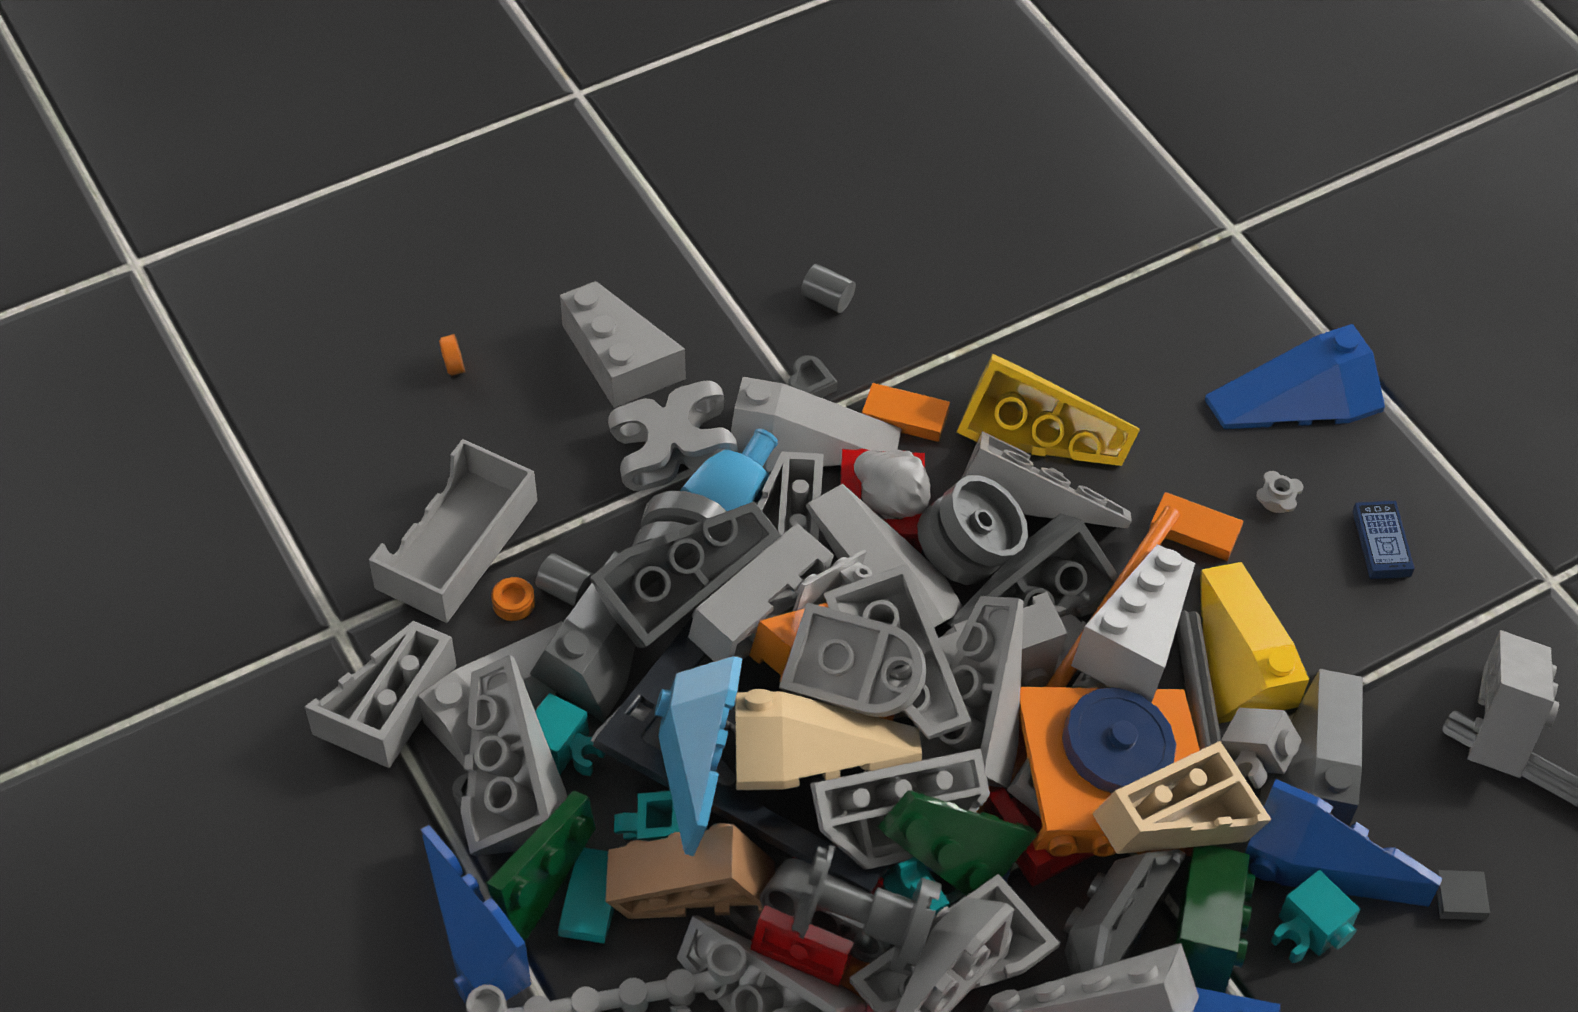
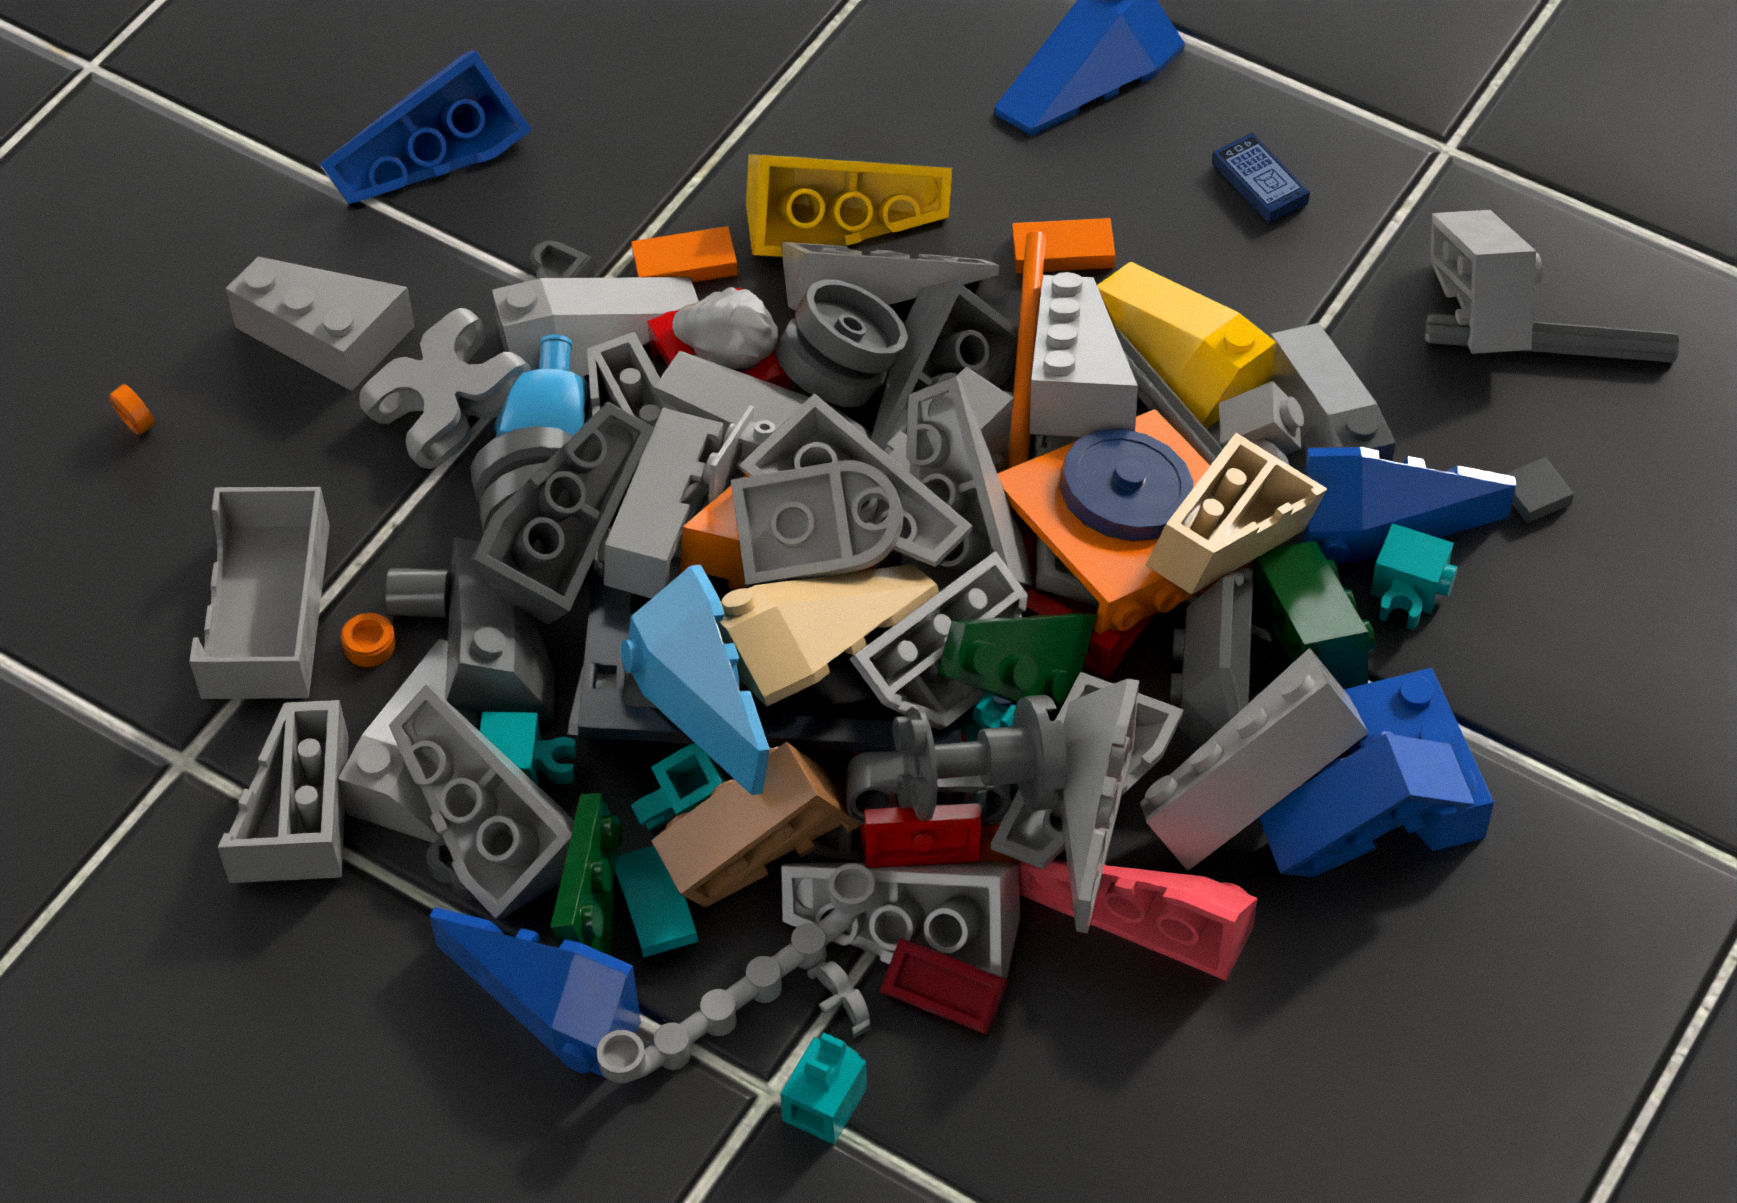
camera: 25 degrees left, 0 degrees up
(774, 239) = (438, 128): none -> blue wedge
(828, 288) = (520, 161): dark grey piece -> none
(1276, 500) = (1129, 174): light grey plate -> none

